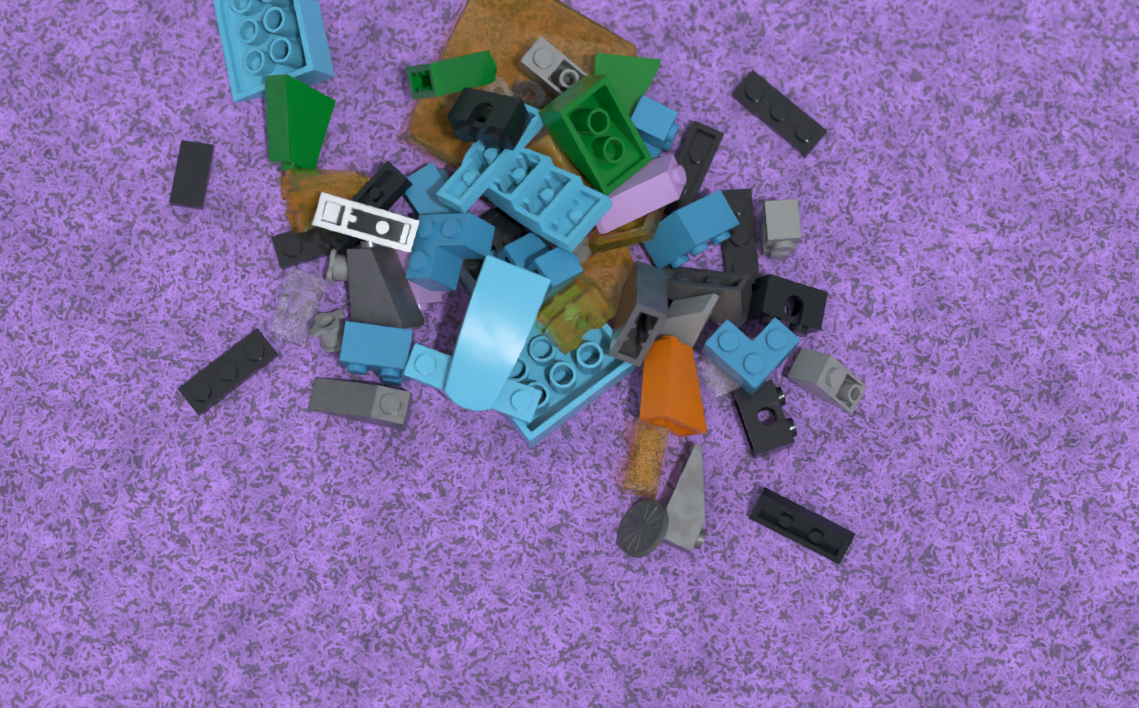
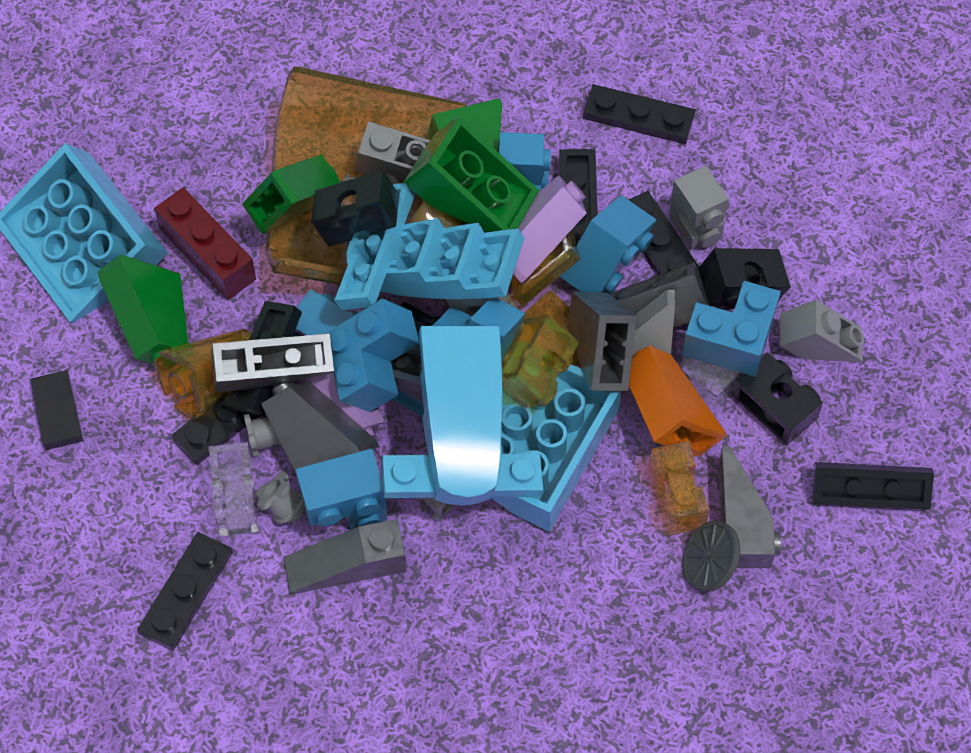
camera: 20 degrees left, 15 degrees down
(367, 81) = (205, 243): none -> dark red brick

